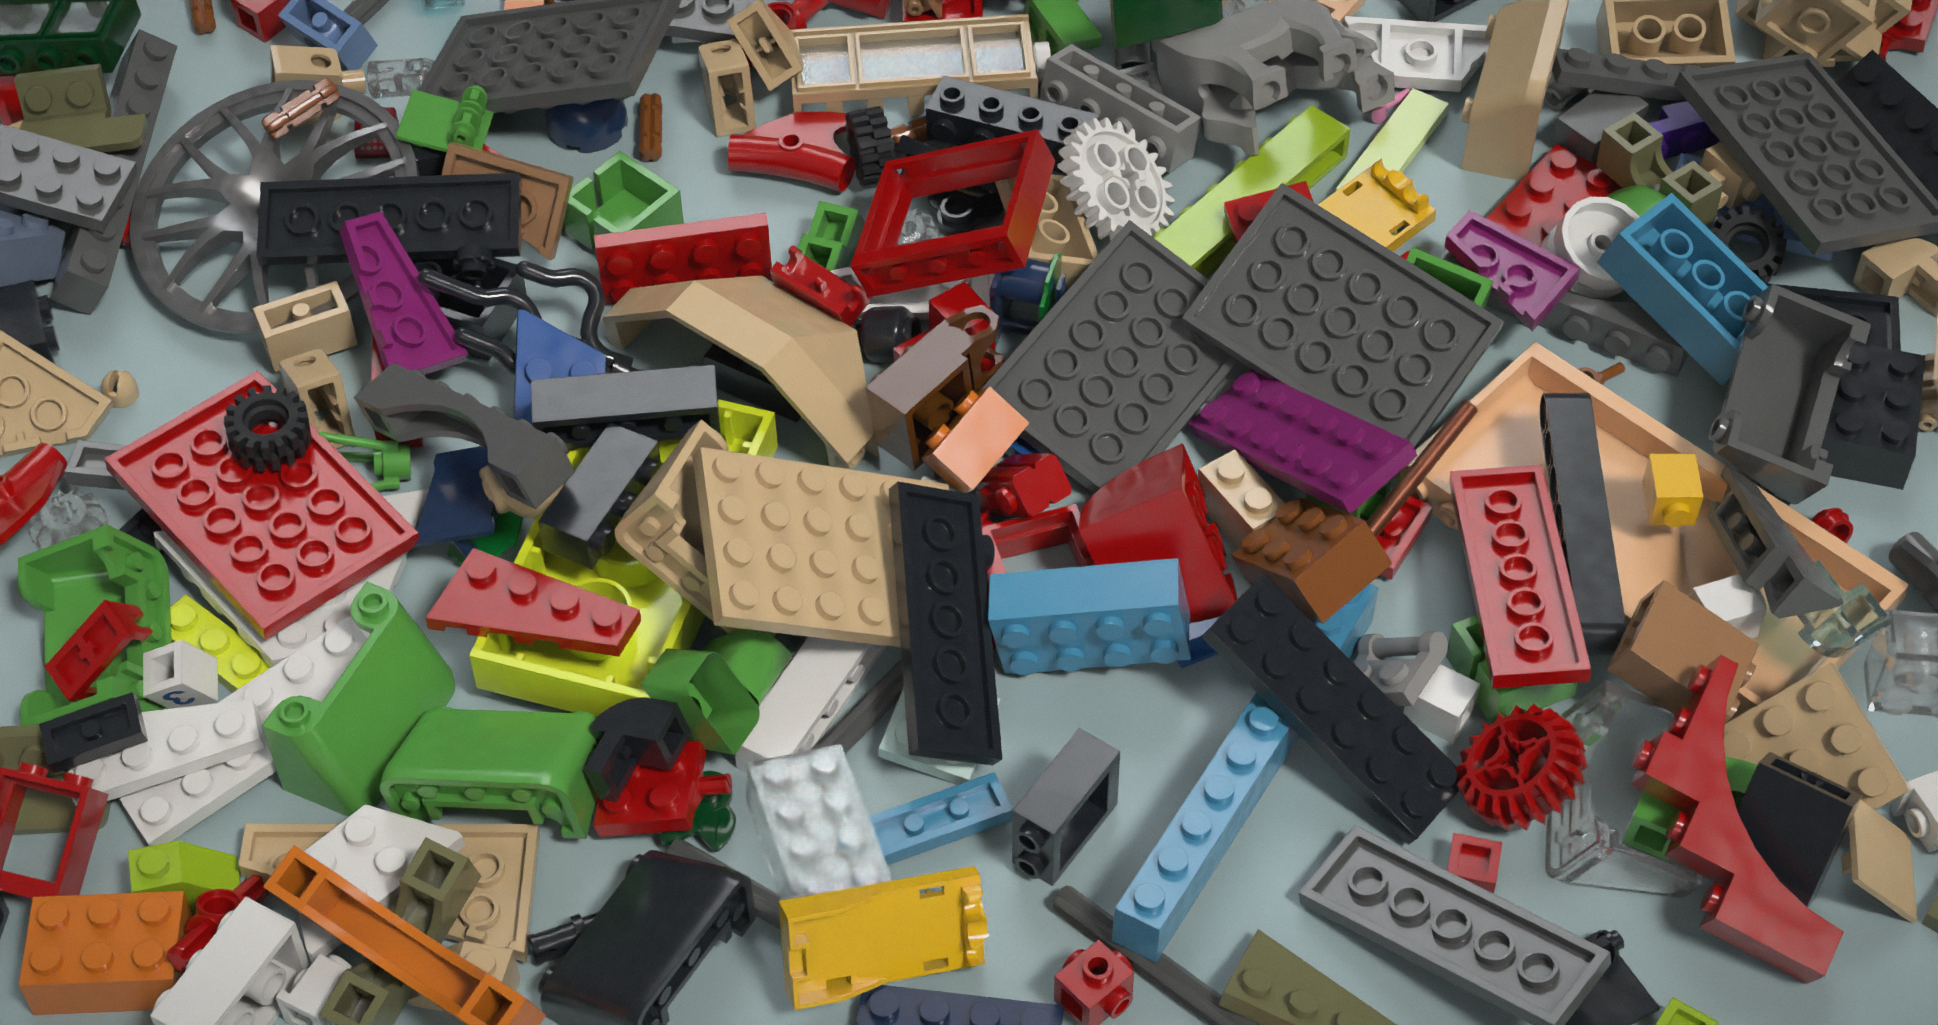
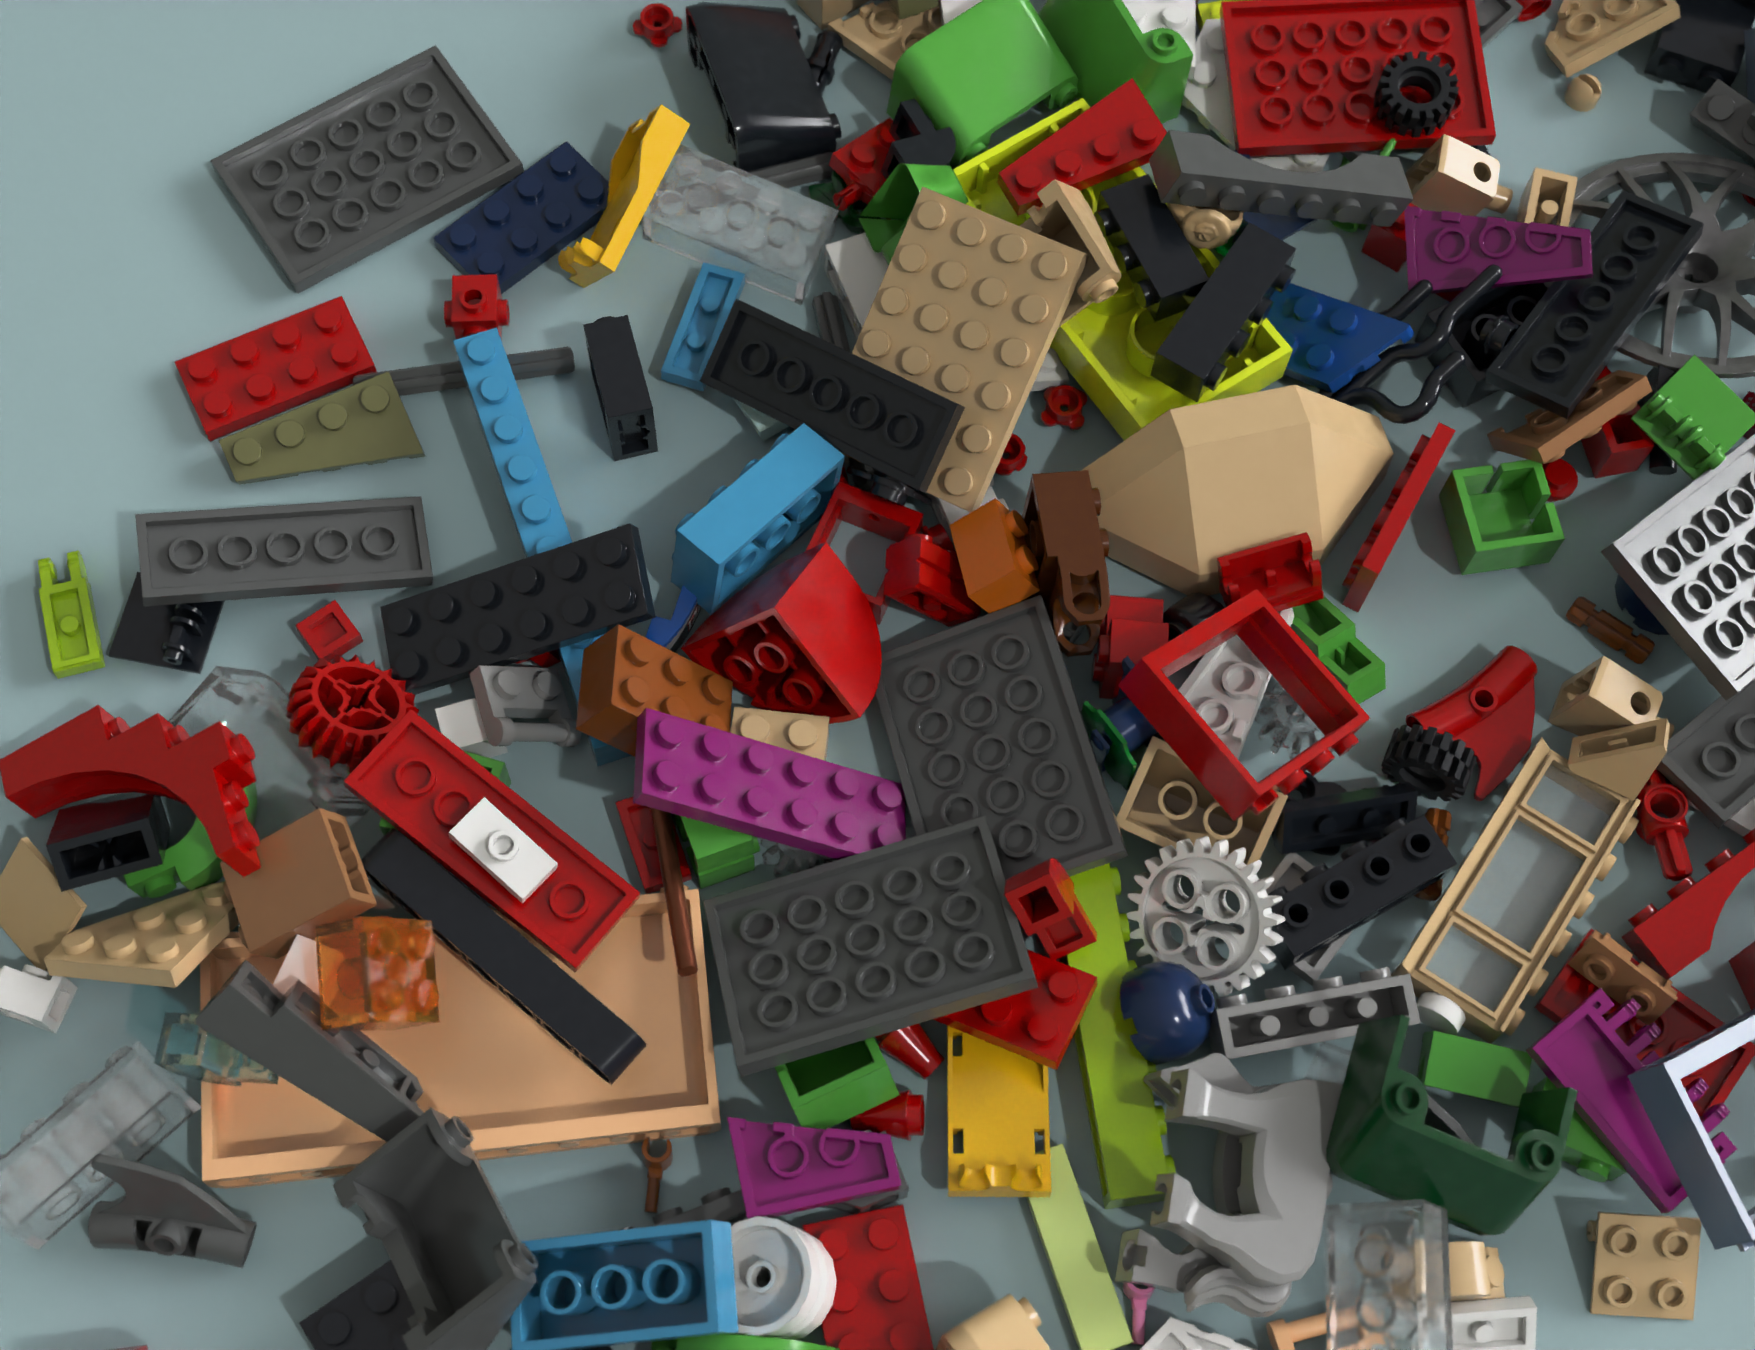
camera: 125 degrees right, 15 degrees up
(1197, 165) = (1168, 1010): none -> dark blue cylinder
(1211, 238) = (1048, 906): none -> red brick
(1522, 546) = (503, 850): none -> white plate
(1672, 489) = (458, 1061): yellow brick -> none
(1686, 539) = (376, 974): none -> clear orange brick
(1835, 522) = (325, 1206): red plate -> none

